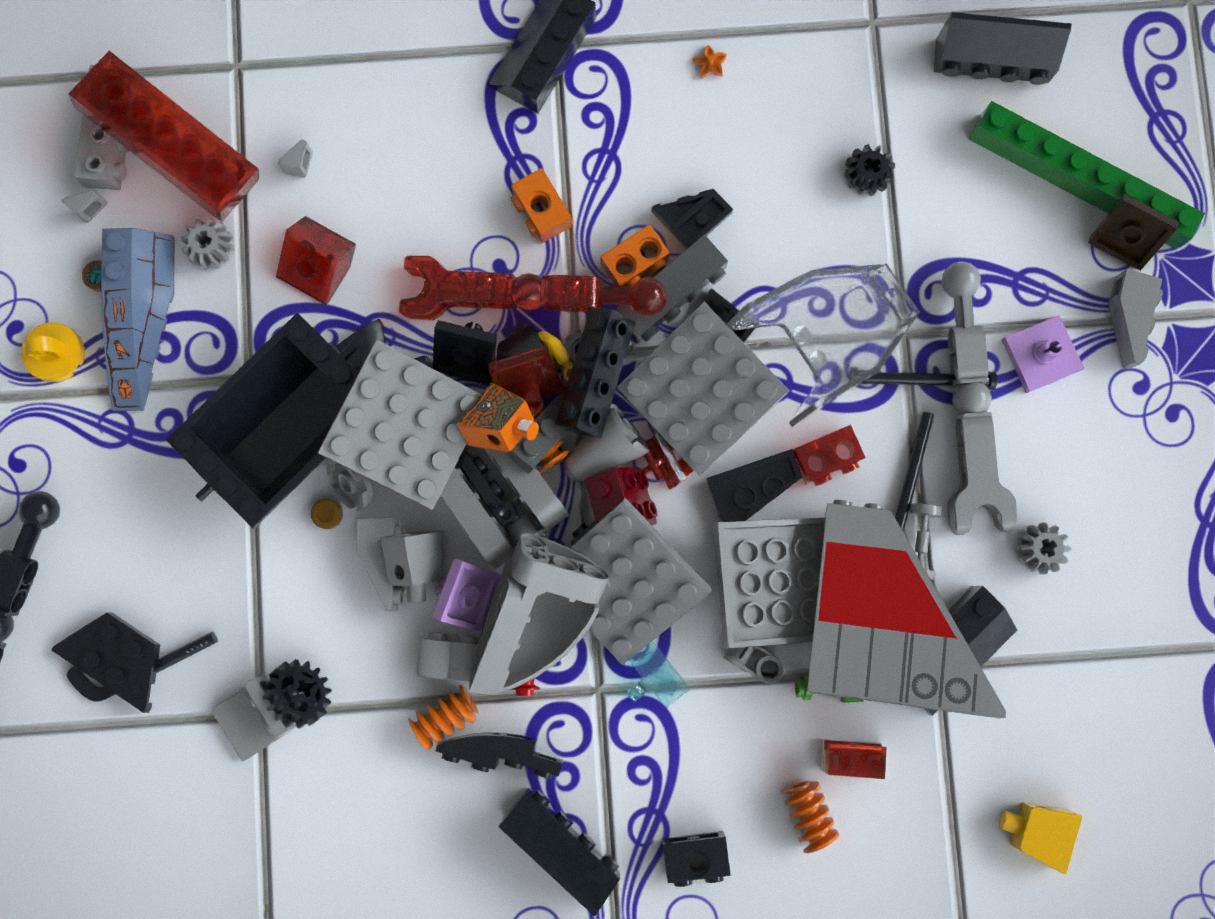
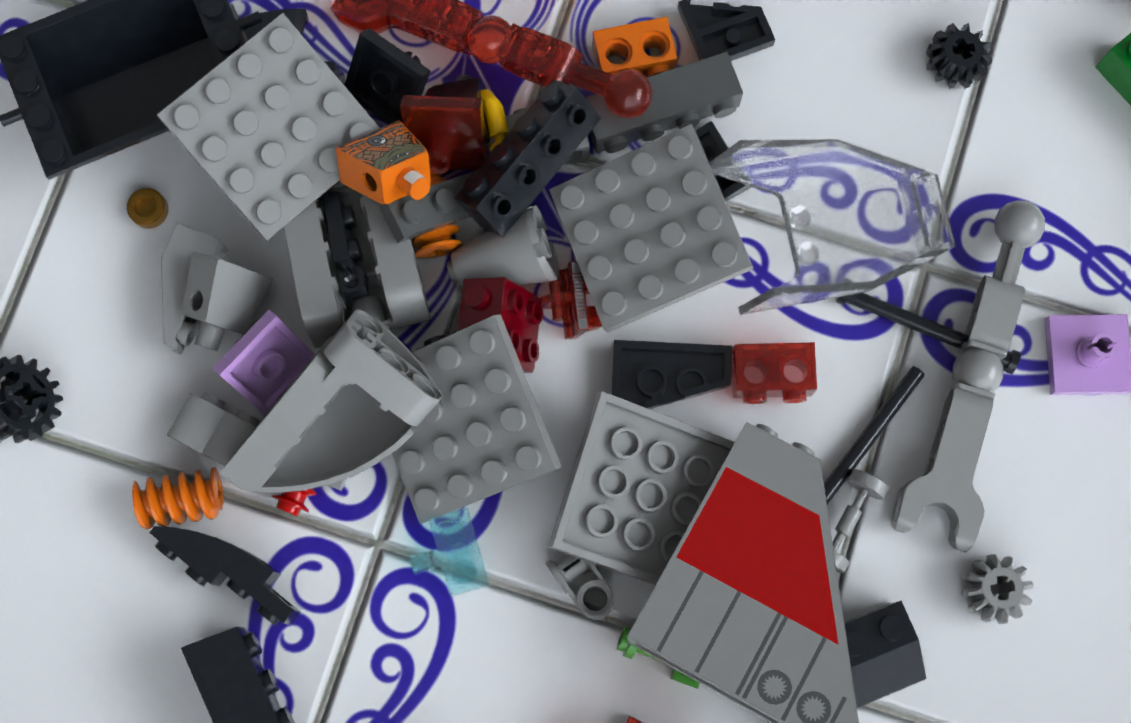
camera: 20 degrees right, 5 degrees down
(350, 486) = (190, 183): light grey tile -> none

